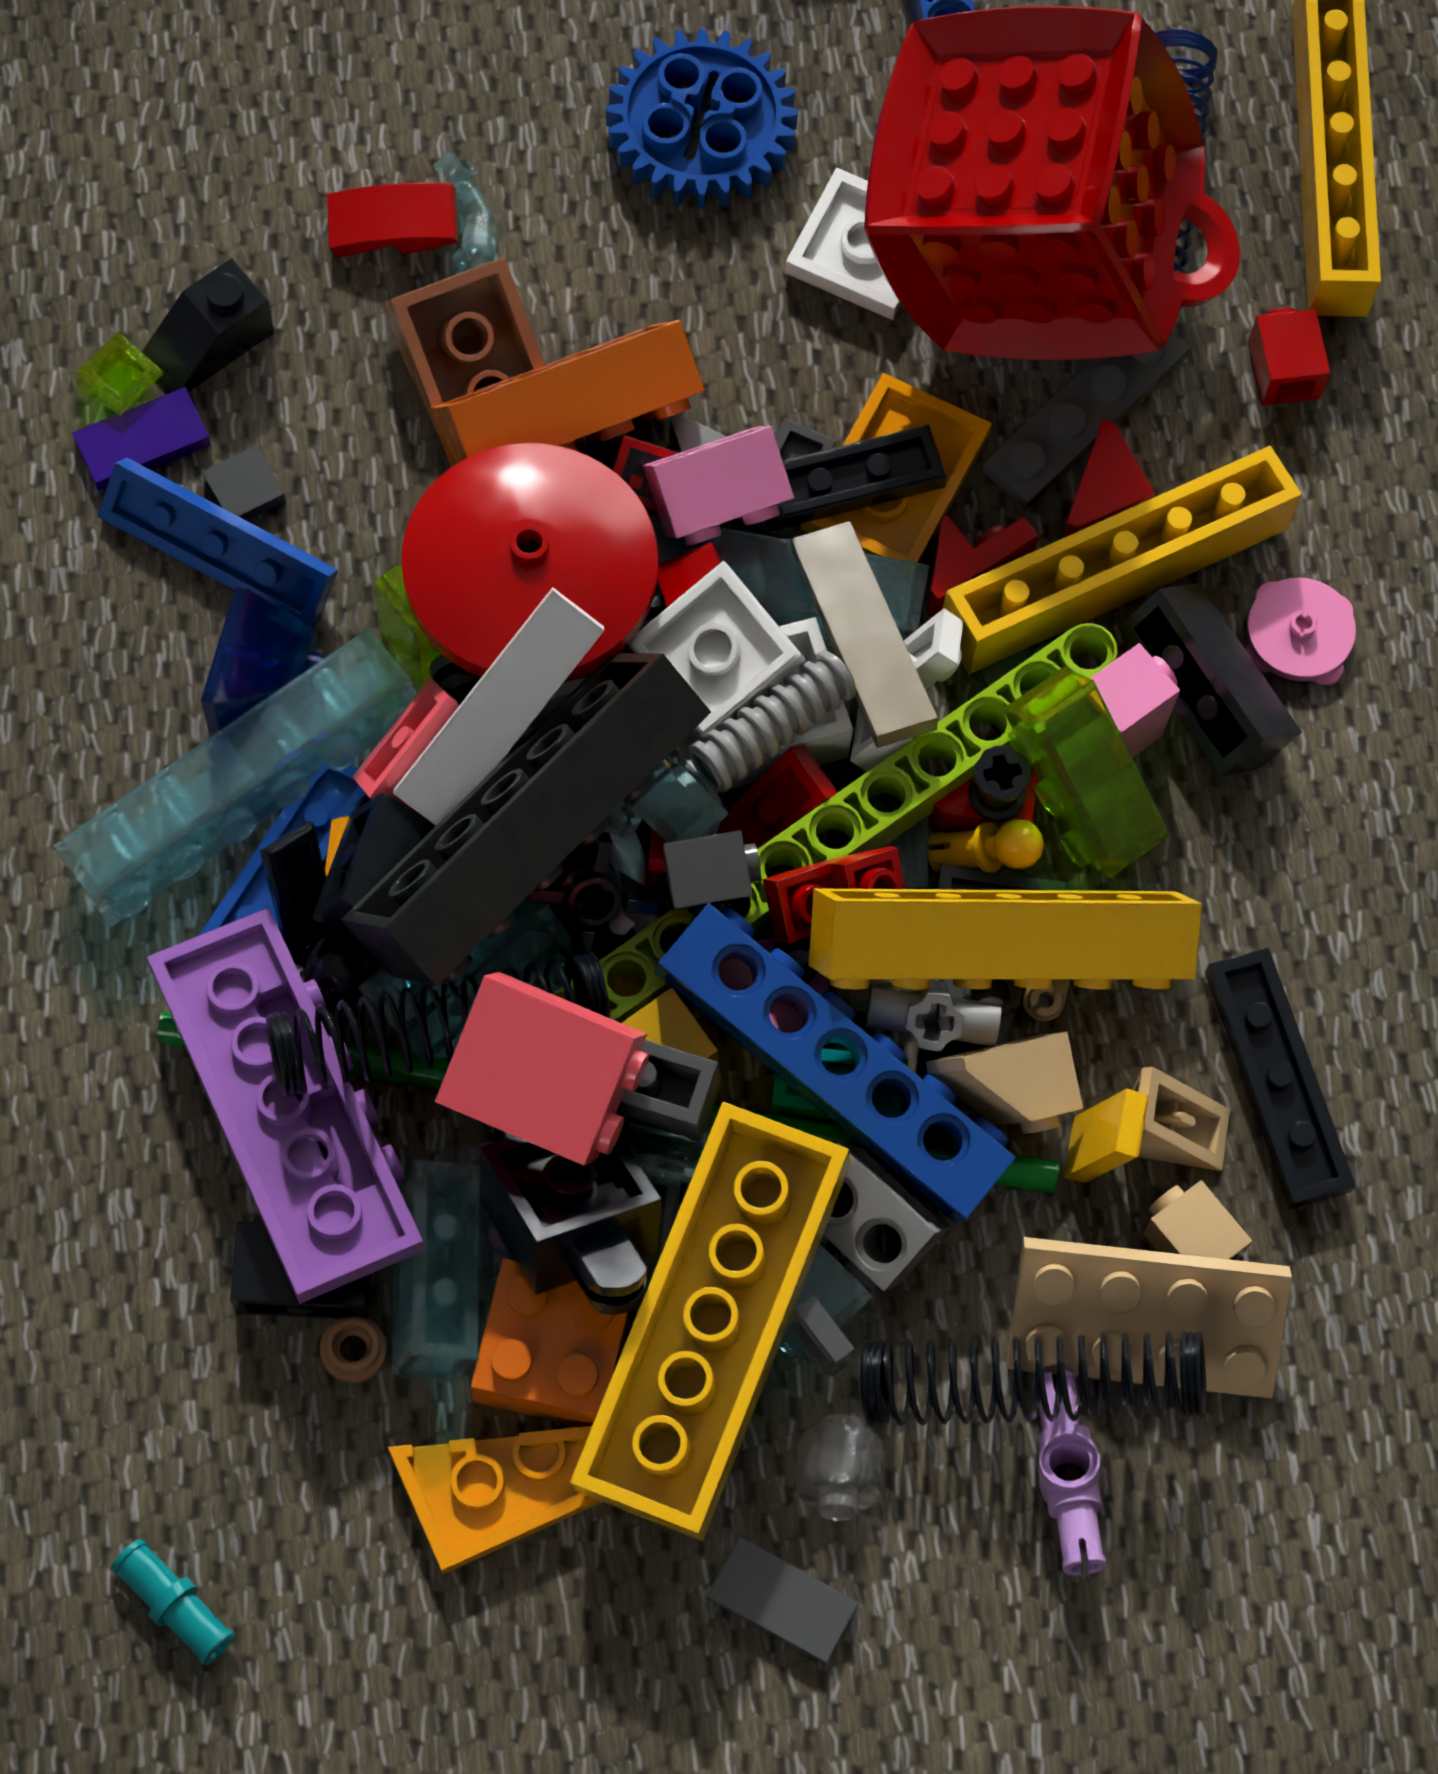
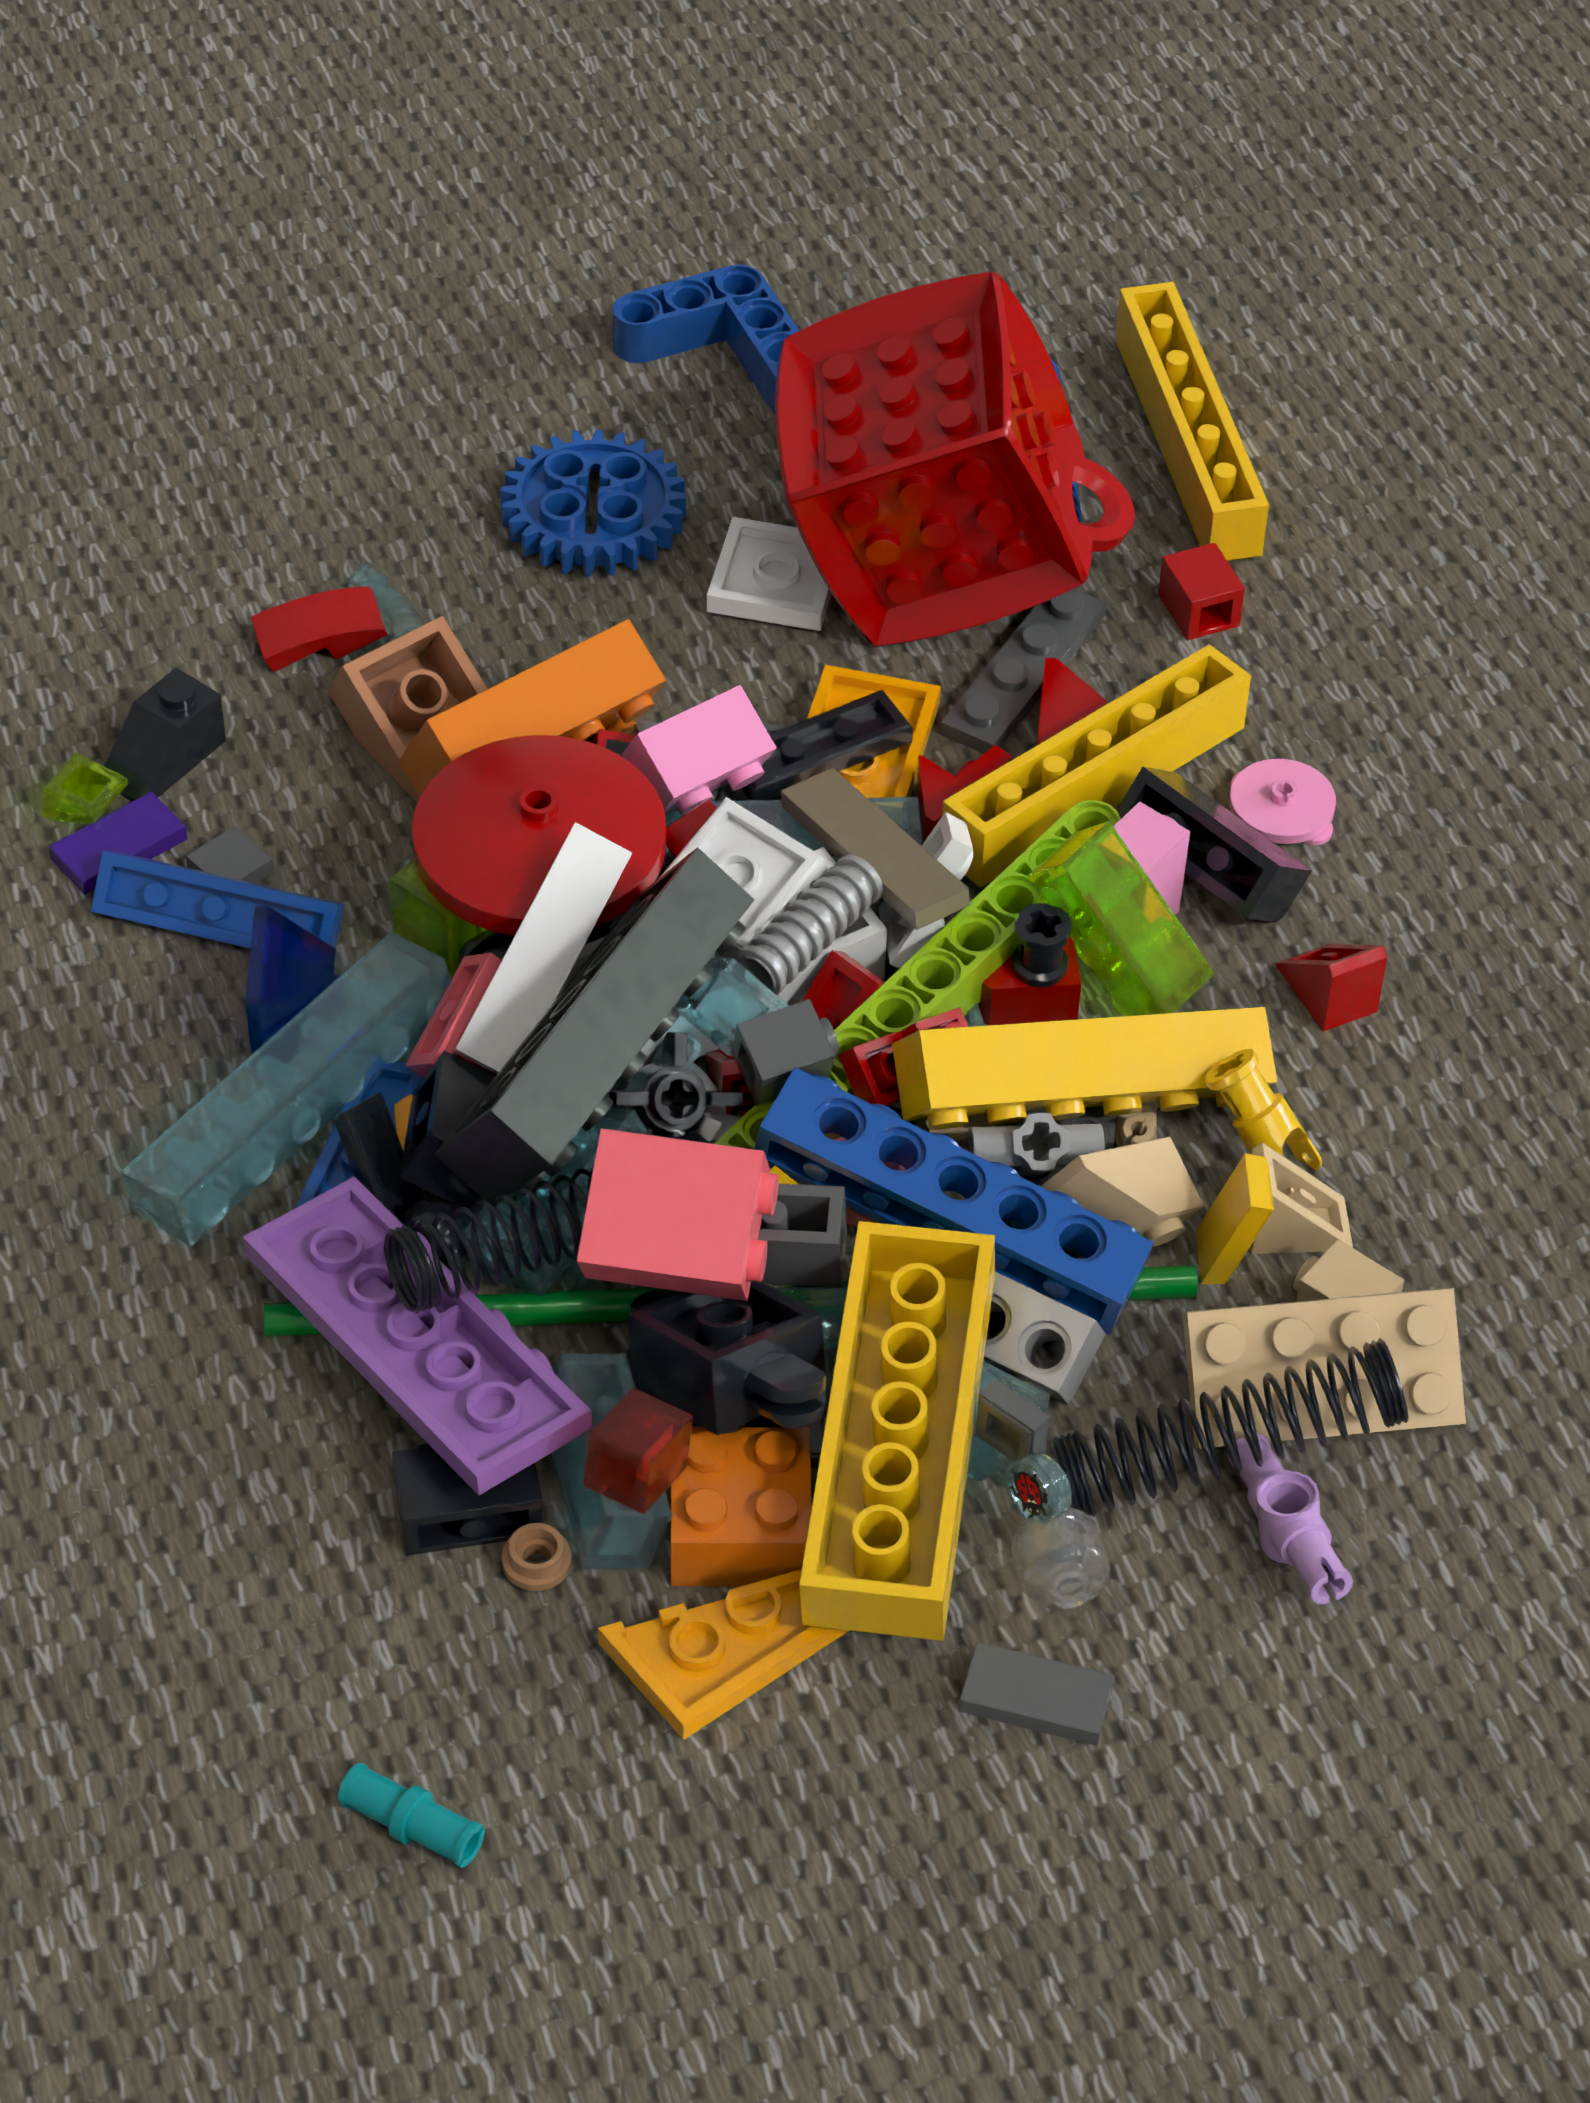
camera: 10 degrees left, 20 degrees down
(455, 1299) = (638, 1450): none -> clear red brick
(832, 1406) = (1039, 1487): none -> clear light blue tile
(1015, 845) = (1070, 998): yellow pin -> none
(1164, 1017) = (1257, 1110): none -> yellow piece
(1279, 1078) = (1384, 1158): black plate -> none
(1289, 858) = (1337, 981): none -> red slope

